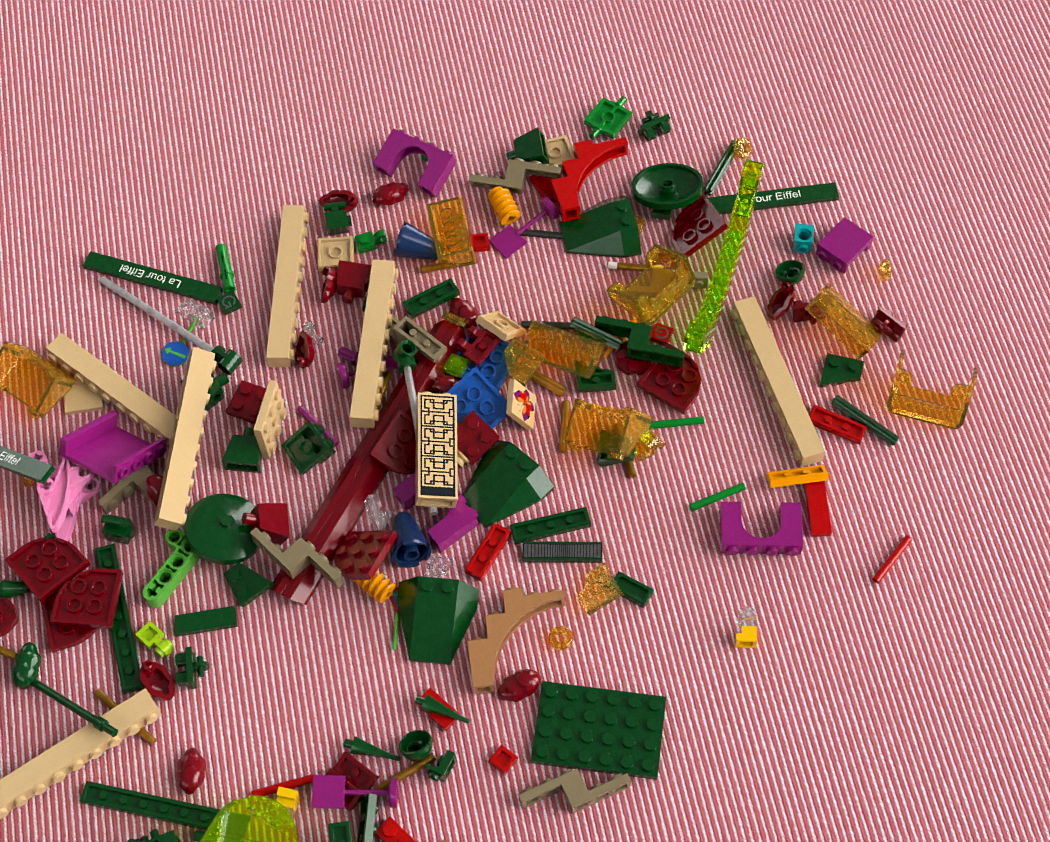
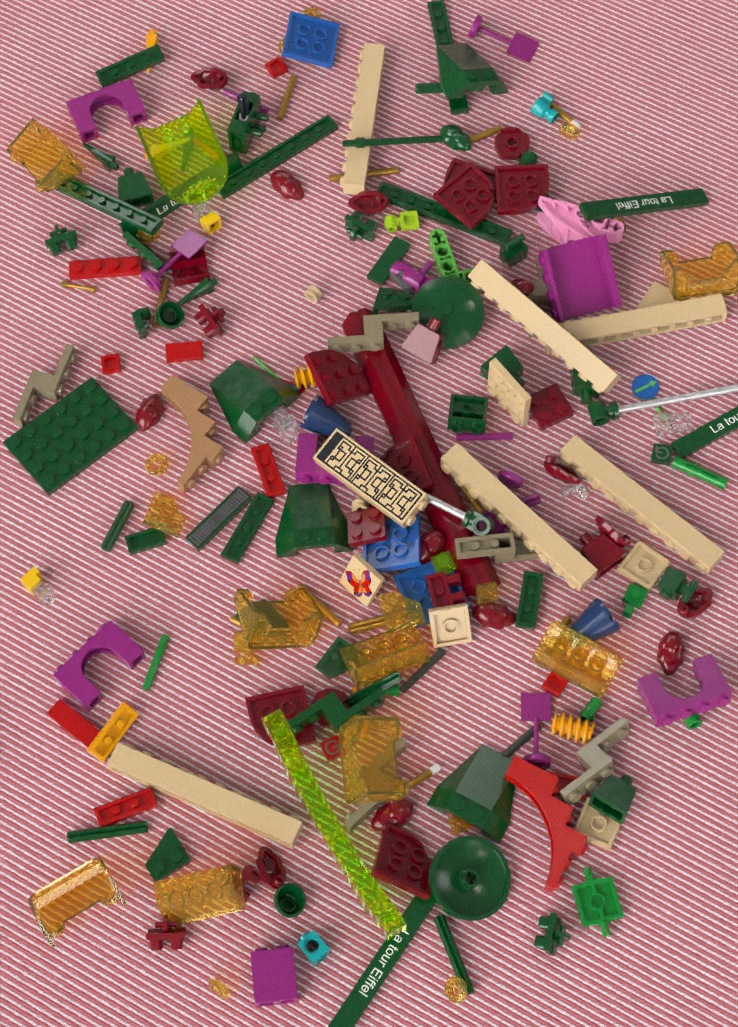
camera: 130 degrees right, 5 degrees up
(210, 584) = (408, 277): none -> magenta piece
(287, 784) = (224, 228): red piece -> none
(291, 650) = (313, 294): none -> tan bush
(377, 518) = (362, 415): clear slope -> none
(394, 701) = (205, 315): none -> dark red hips
(433, 706) = (186, 344): dark green piece -> none
(477, 208) = (591, 709): none -> green pin
(640, 619) = (117, 526): none -> dark green axle
(677, 422) = (245, 687): green piece -> none

